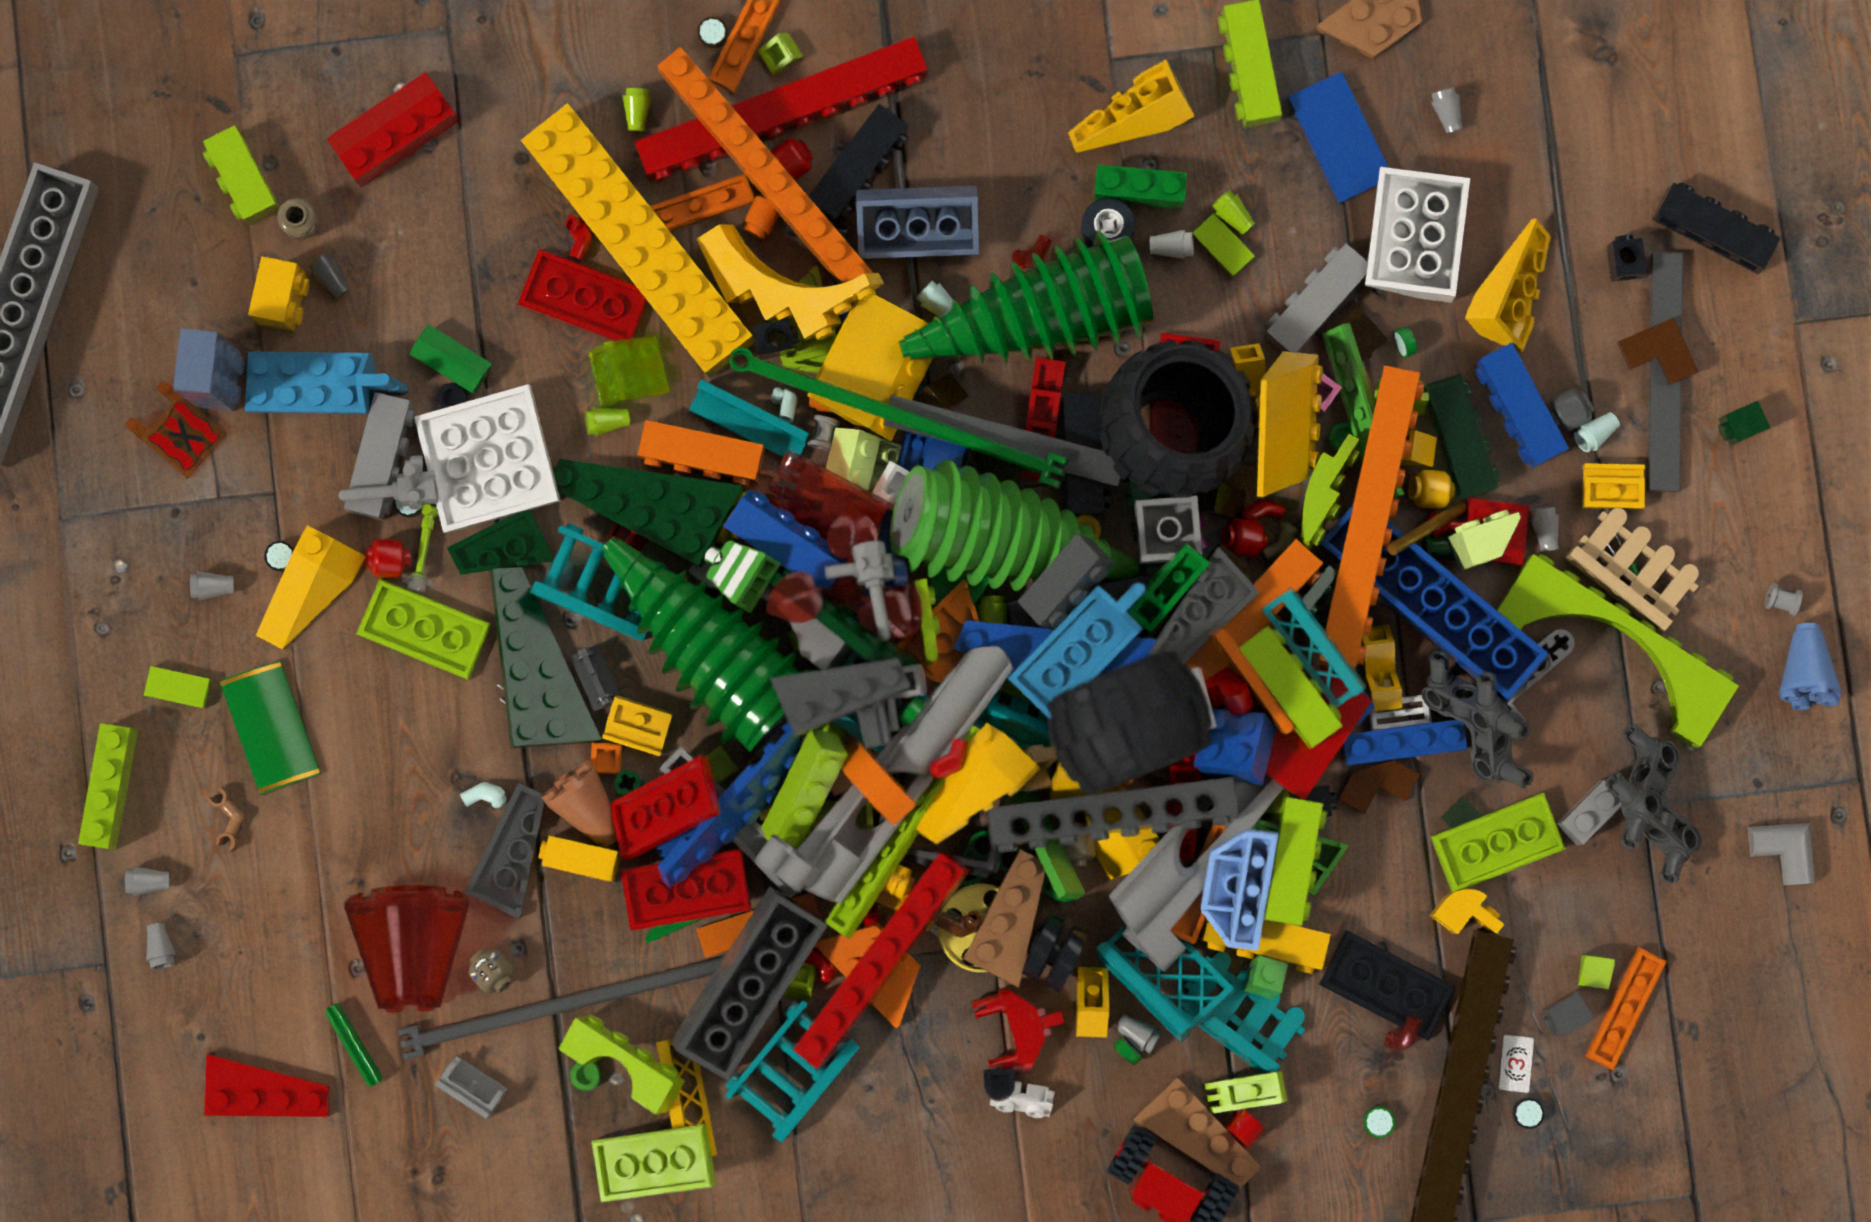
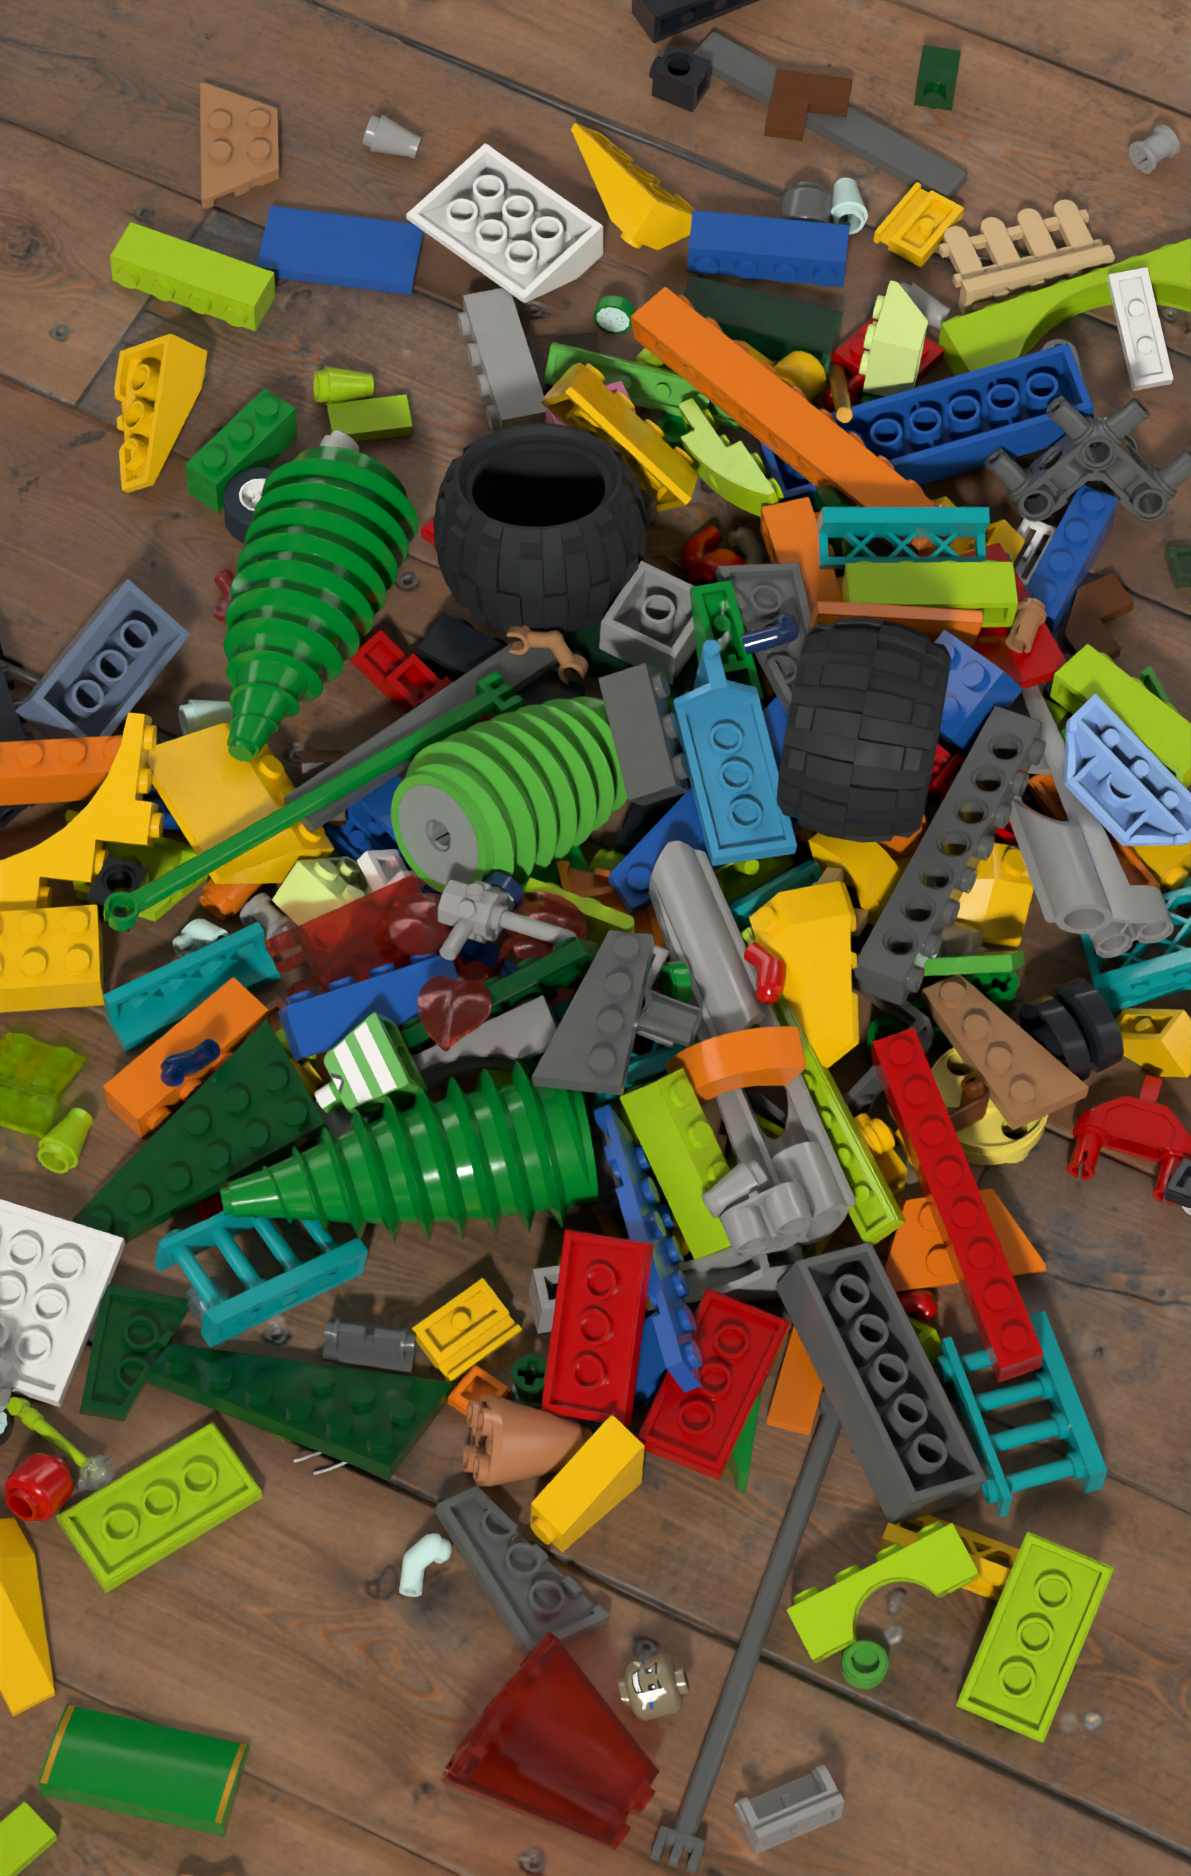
camera: 55 degrees left, 25 degrees down
(690, 462) = (188, 1062): none -> clear blue arm
(796, 834) = (735, 1187): none -> light grey cone
(1110, 478) = (553, 640): none -> medium nougat arm
(1186, 615) = (782, 632): none -> dark blue arm
(1312, 757) = (1029, 616): none -> medium nougat pin
(1620, 680) = (1140, 329): none -> white plate

